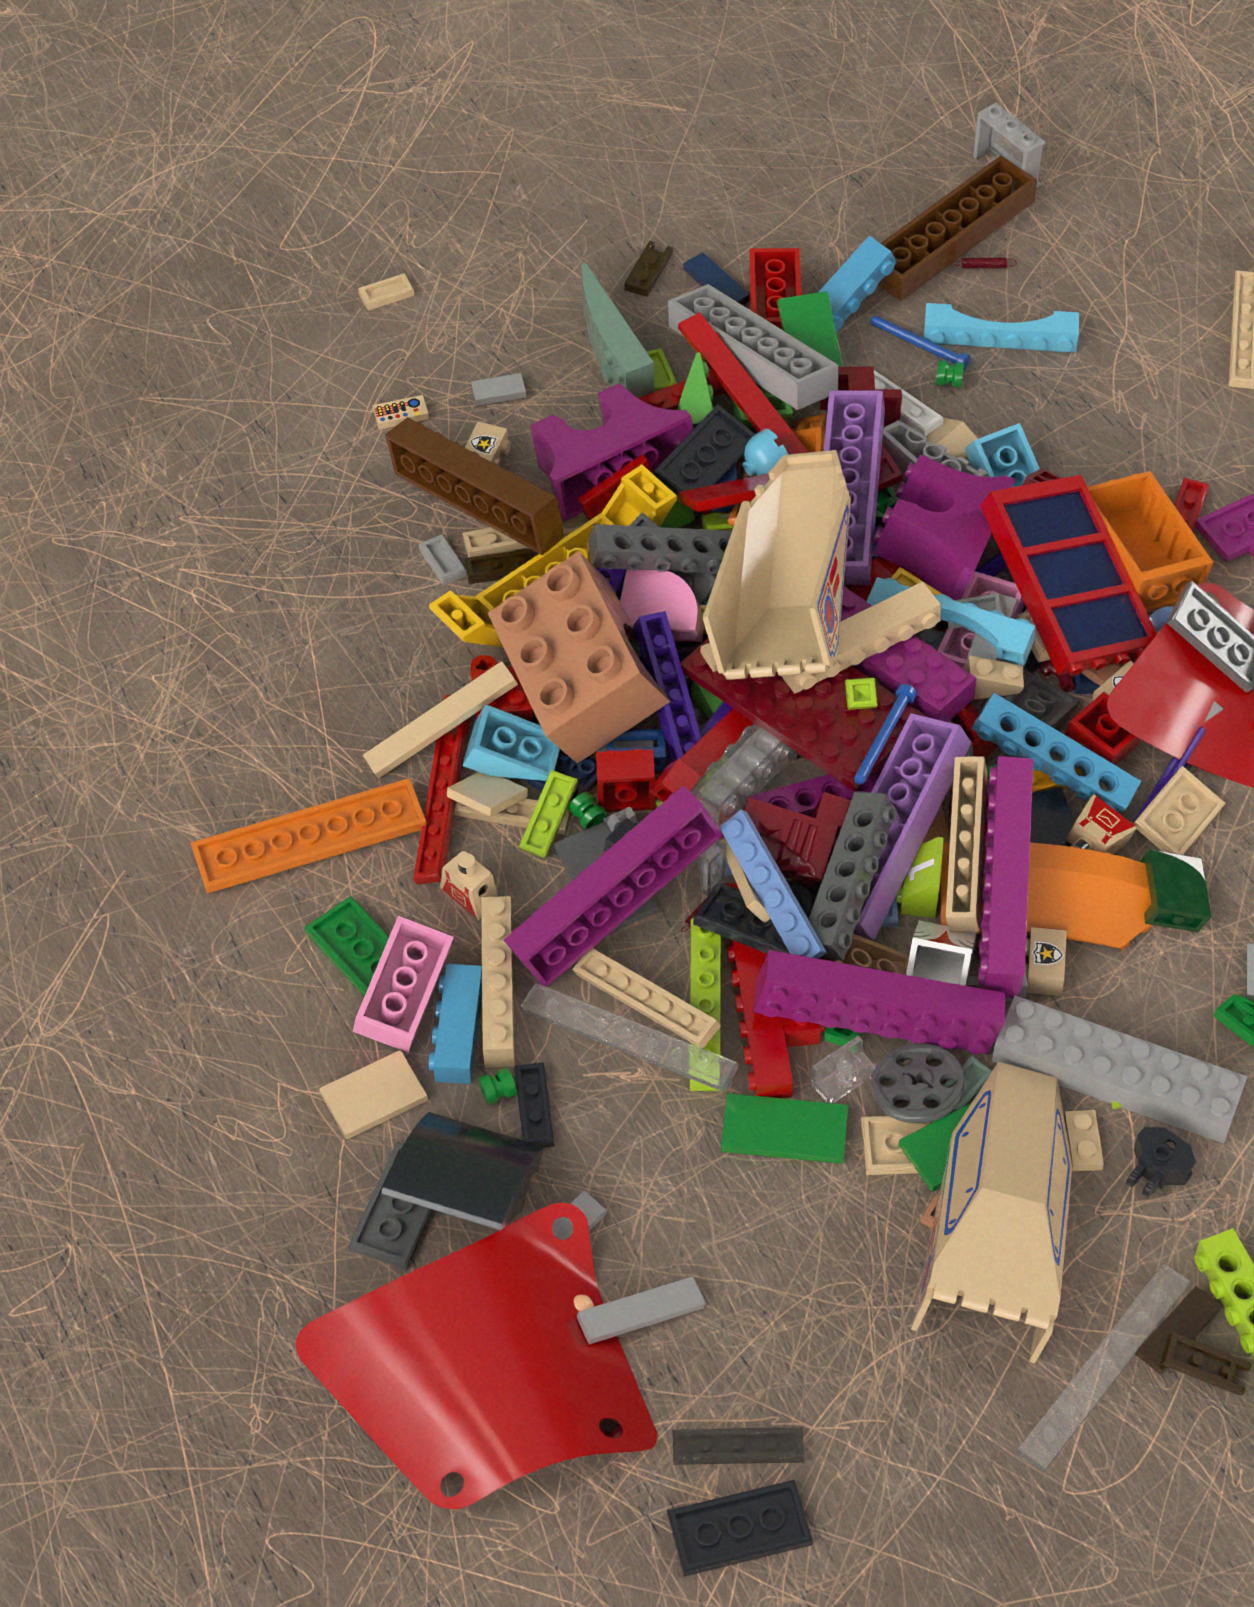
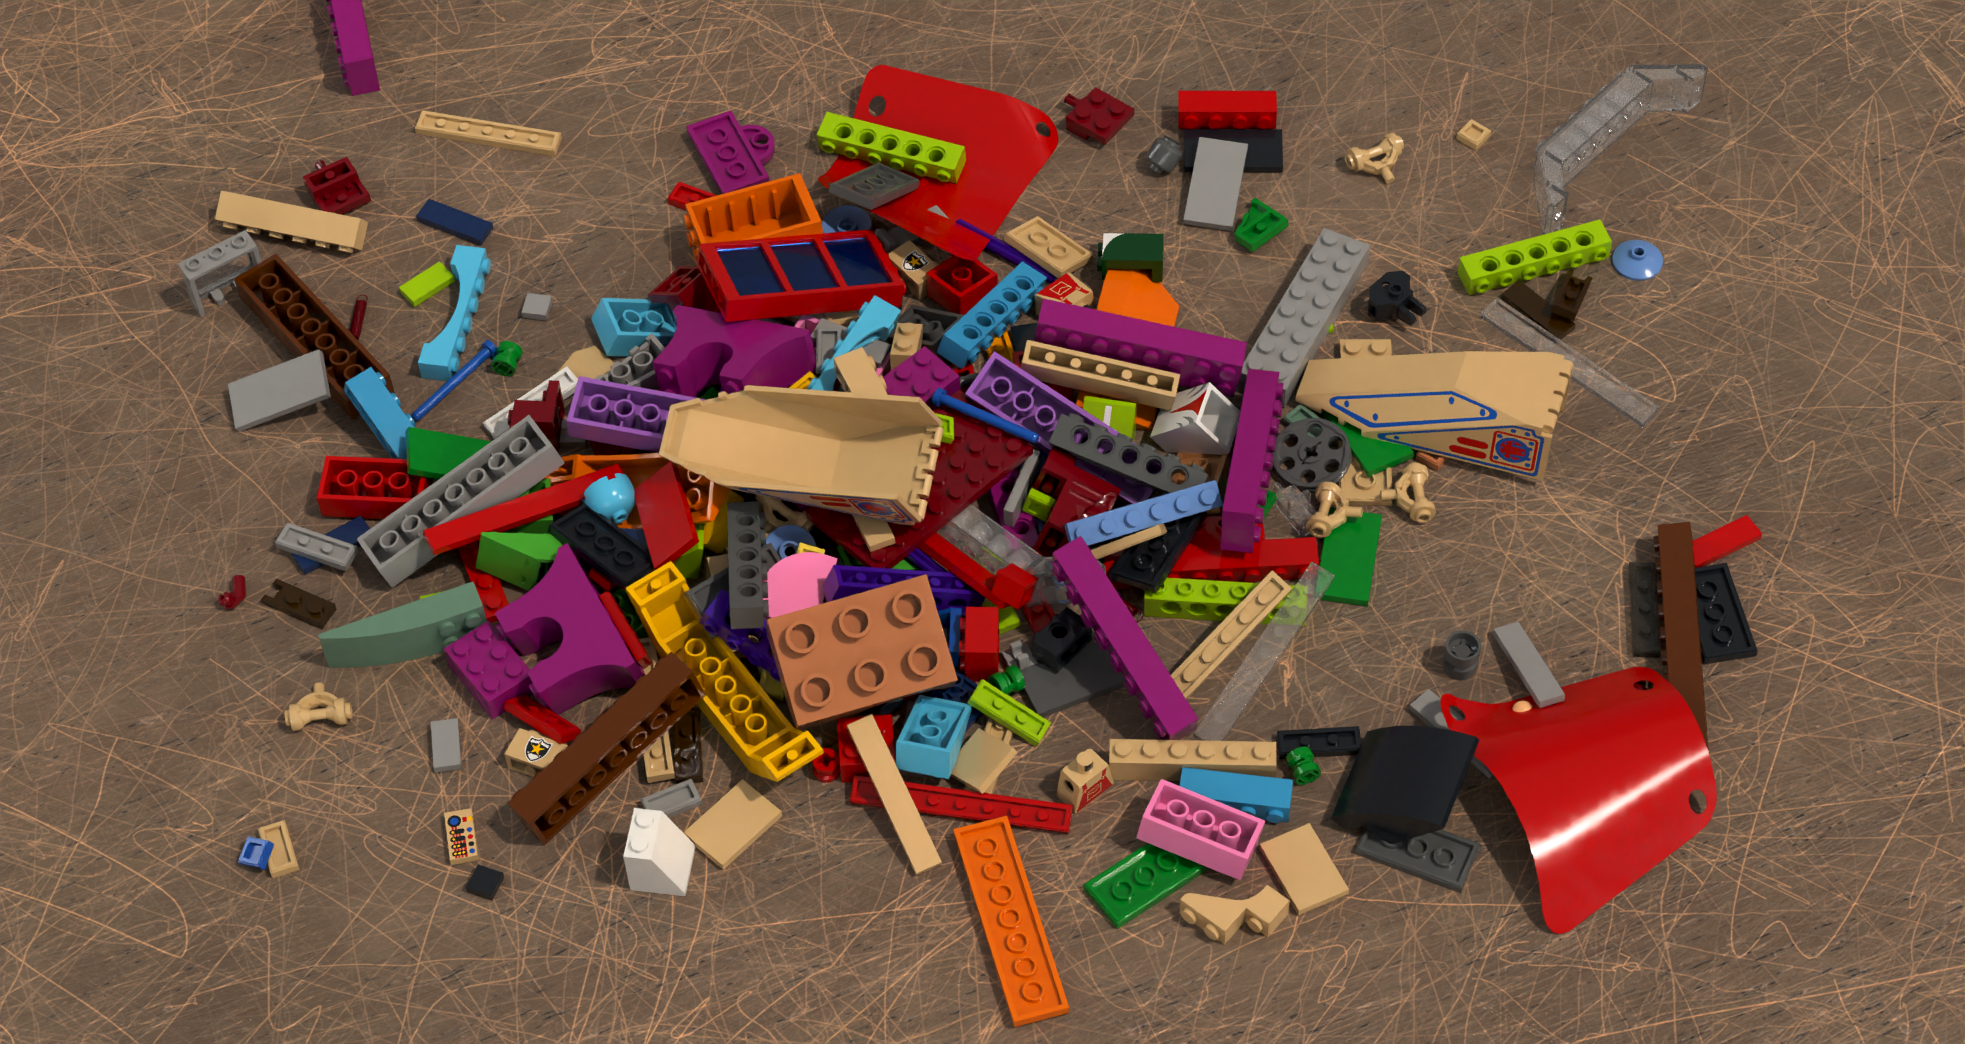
camera: 85 degrees left, 0 degrees up
(308, 1019) = (1224, 916): none -> tan arch
(352, 434) = (485, 882): none -> black tile
(369, 542) = (657, 854): none -> white slope
(377, 274) = (256, 853): none -> blue tile
(407, 606) = (733, 824): none -> tan tile
(516, 451) = (542, 719): none -> red tile
(522, 281) = (301, 713): none -> tan piece
(574, 399) = (488, 668): none -> magenta brick
(647, 1238) = (1461, 655): none -> dark grey wheel
(652, 224) = (236, 596): none -> dark red arm
(684, 1479) = (1680, 616): none -> reddish brown brick
(707, 263) = (316, 546): none -> light grey tile
(804, 805) = (1038, 504): none -> lime tile
(807, 791) = (1022, 488): none -> light grey tile
(845, 1537) = (1725, 541): none -> red tile
(857, 1100) = (1328, 495): none -> tan piece
(878, 210) = (279, 390): none -> light grey tile
(897, 1187) = (1419, 508): none -> tan piece
(1023, 392) = (537, 306): none -> light grey tile
(1034, 303) = (427, 284): none -> lime tile
(1090, 193) = (292, 221): none -> tan brick
(1121, 317) = (454, 222): none -> dark blue tile
(1142, 221) = (336, 187): none -> dark red plate

